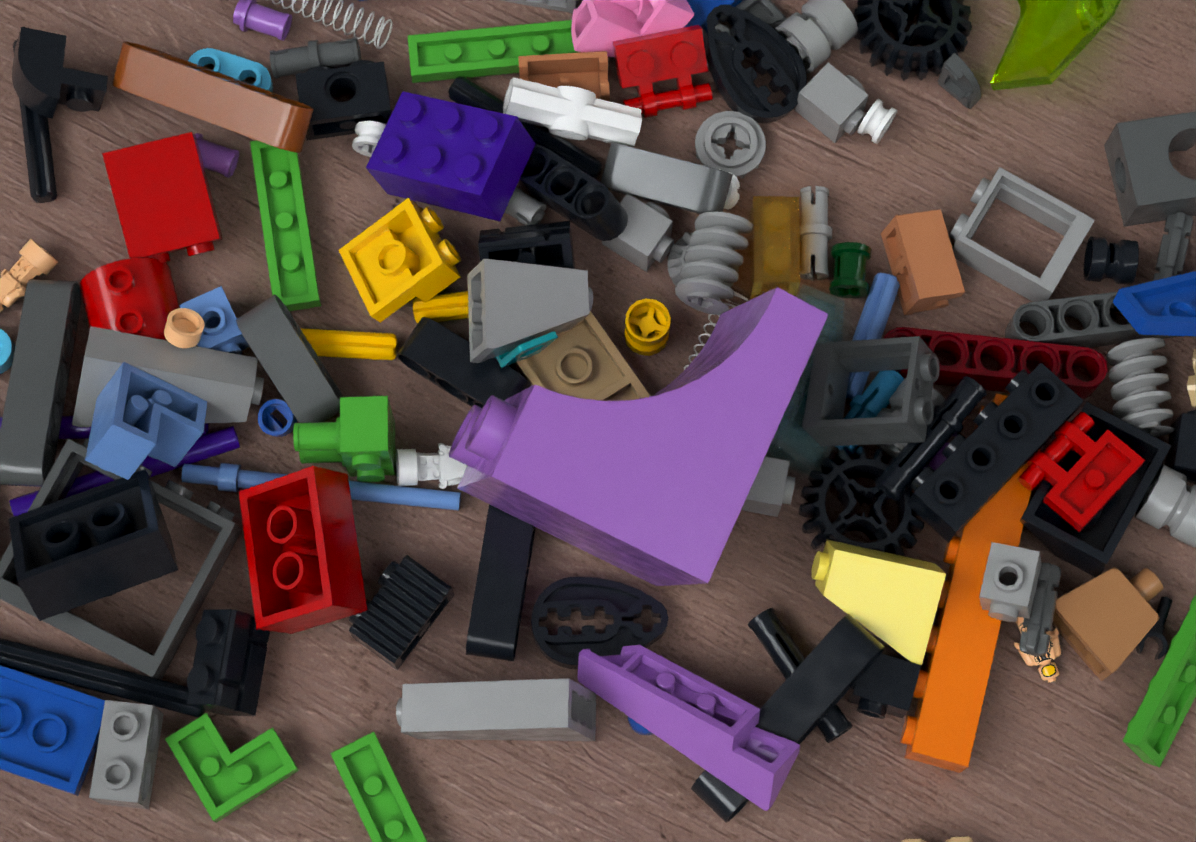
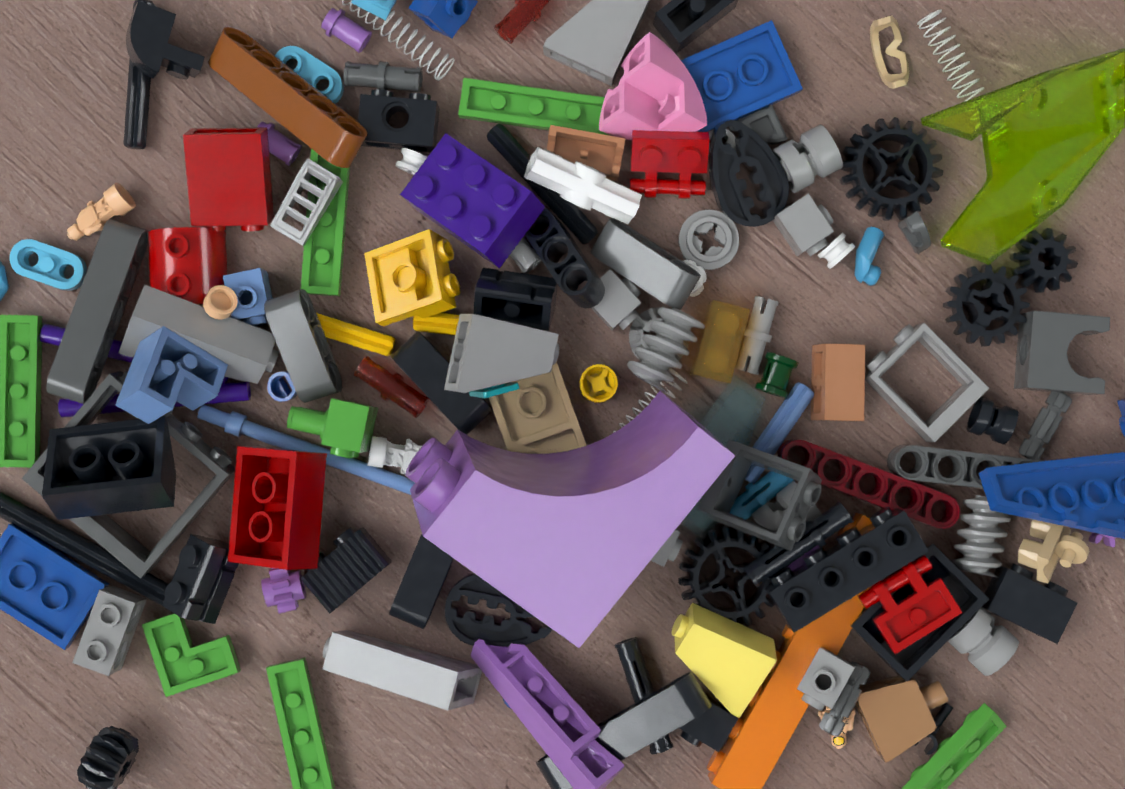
camera: 15 degrees right, 15 degrees up
(267, 165) = (300, 183): none -> light grey slope
(330, 652) = (283, 589): none -> medium lavender gear
(406, 390) = (391, 387): none -> clear red pin
(911, 118) = (865, 254): none -> dark azure arm
(1044, 142) = (978, 320): none -> black gear
(1111, 77) = (1034, 270): none -> black gear

